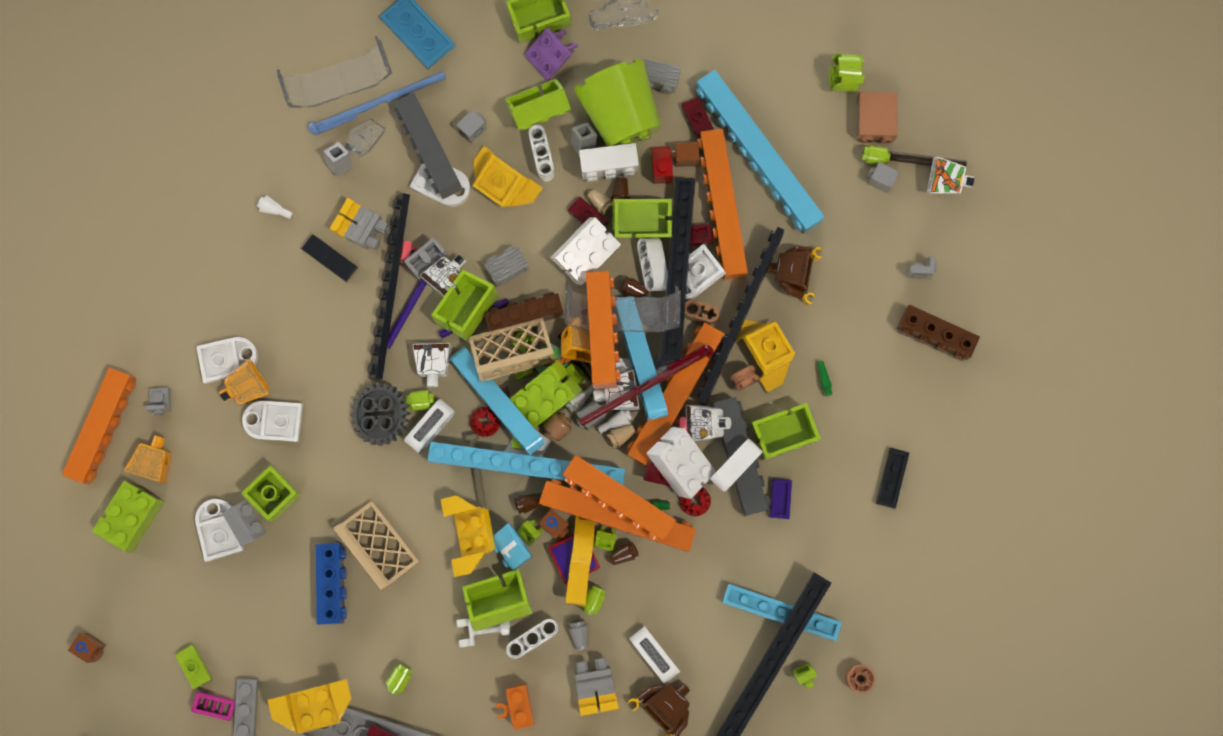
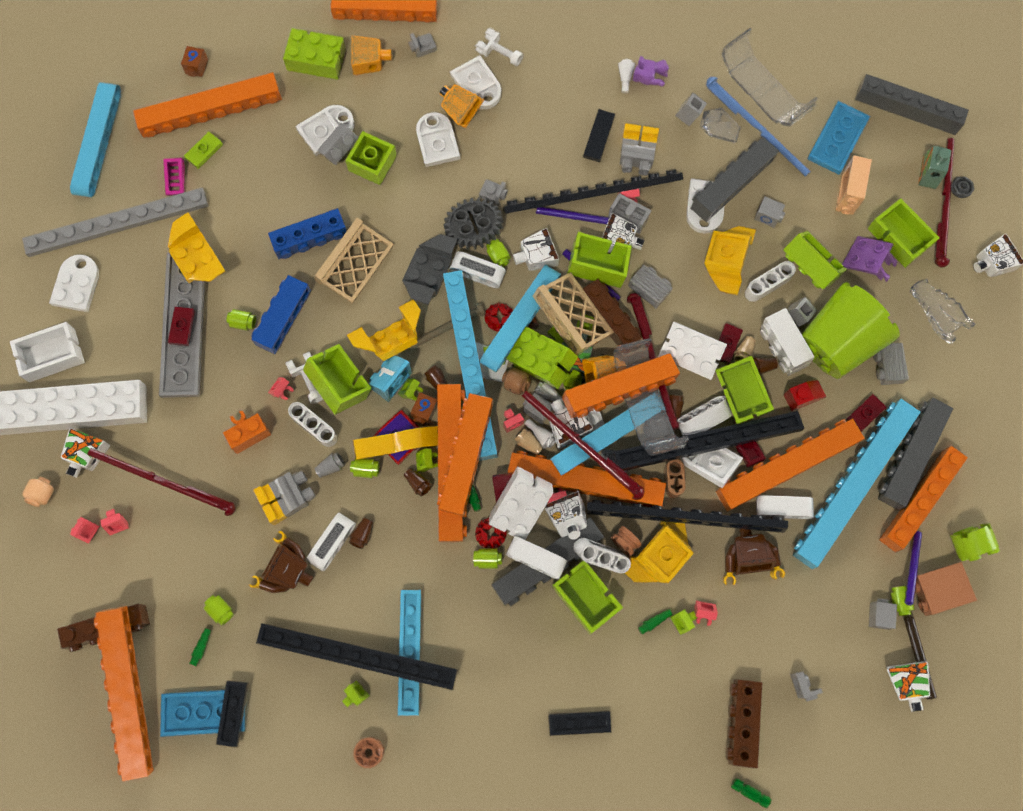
camera: 65 degrees right, 5 degrees down
(144, 648) = (207, 105): none -> orange brick
(177, 326) = (493, 37): none -> white bar
(276, 182) = (646, 71): none -> medium lavender animal
(352, 383) = (493, 191): none -> light grey bracket
(408, 636) = (281, 314): none -> blue brick
(412, 474) = (427, 268): none -> dark grey piece
(475, 38) = (853, 185): none -> light nougat window
(483, 661) = (278, 388): none -> coral tile
(544, 286) = (645, 330): none -> dark red bar
(594, 444) = (512, 421): none -> coral tile
(657, 624) = (360, 536): none -> reddish brown cone
(686, 154) = (824, 413): dark orange brick -> none
(718, 511) = (487, 558): none -> lime brick
(750, 90) = (914, 454): none -> dark grey brick
(752, 405) = (596, 550): none -> white beam
(760, 224) = (785, 507): none -> white beam
(780, 499) = (520, 616): dark purple tile -> none
(793, 100) = (923, 499): none -> orange brick
(830, 330) = (706, 611): none -> coral tile
(833, 353) = (683, 621): none -> lime tile
(851, 134) = (914, 561): none -> dark purple piece
(996, 350) = (751, 793): none -> green axle

